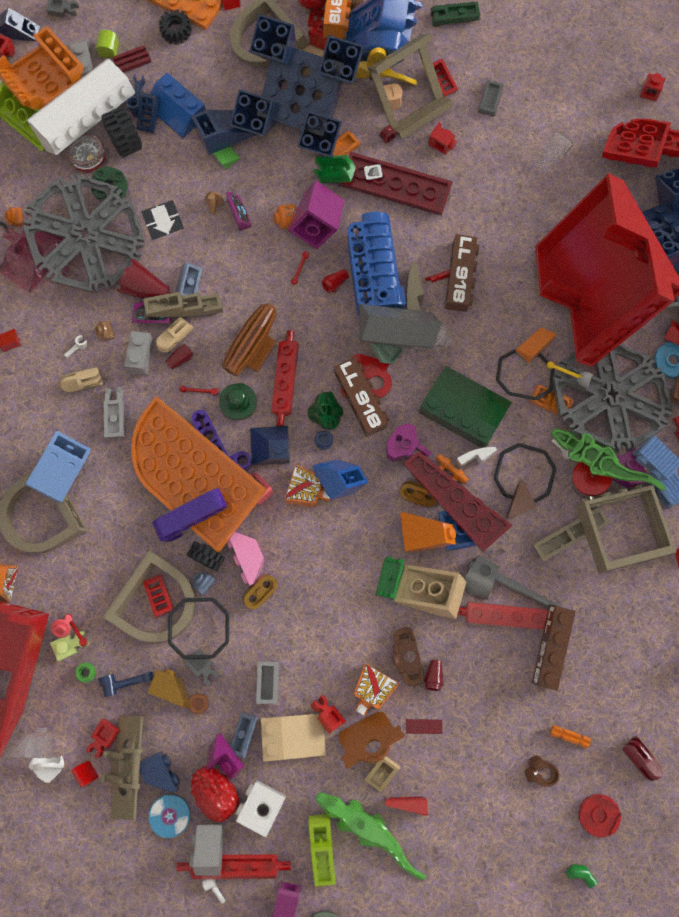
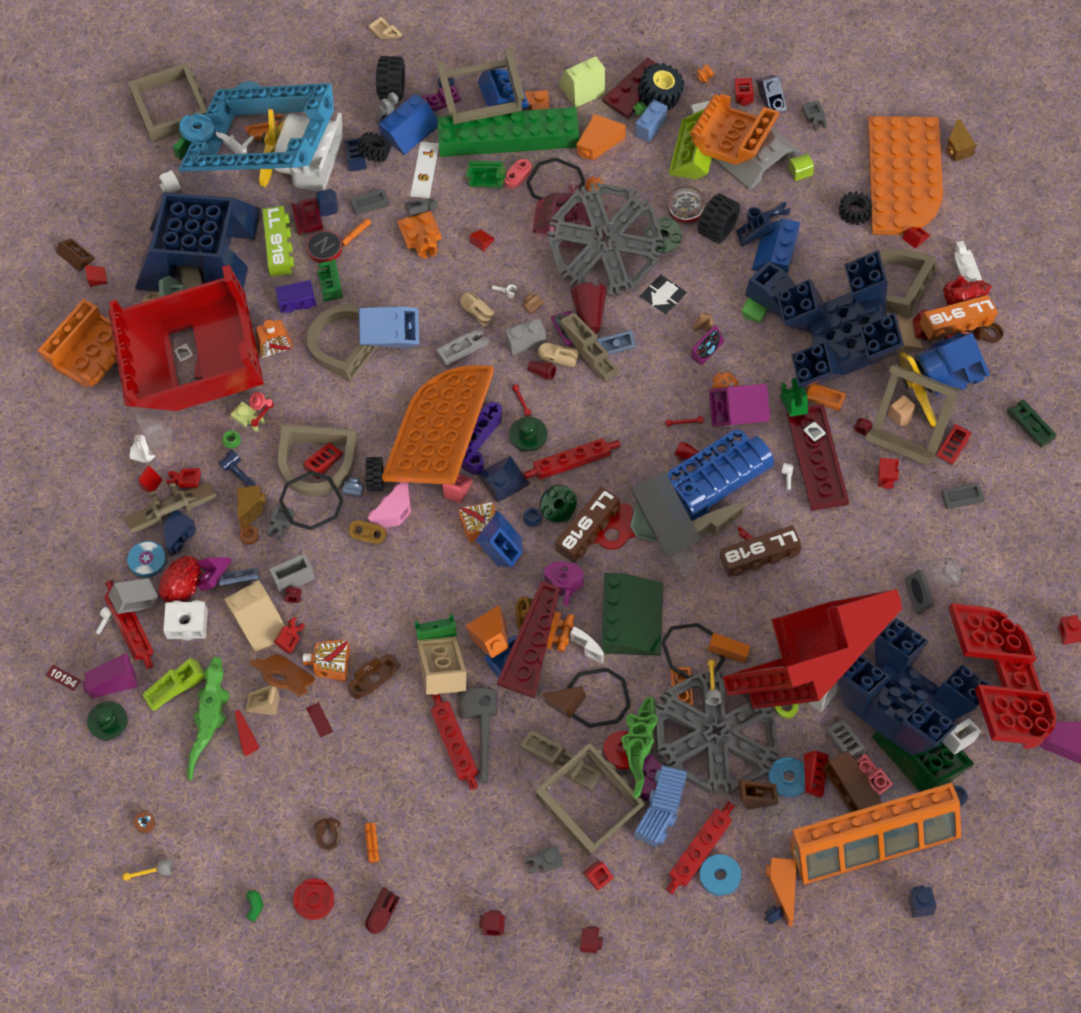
camera: 65 degrees right, 15 degrees down
(80, 106) = (721, 174): white slope -> none
(131, 57) = (803, 191): dark red tile -> none
(172, 524) = (389, 434): dark purple beam -> none
(252, 342) = (584, 413): dark orange plate -> none
(287, 692) = (292, 595): none -> dark red bush
(395, 211) = (787, 470): none -> white hand
(434, 676) = (366, 704): dark red cone -> none
(553, 647) = (443, 785): reddish brown brick -> none
(562, 174) = (919, 591): none -> dark grey tile
(656, 590) = (547, 859): none -> dark grey plate

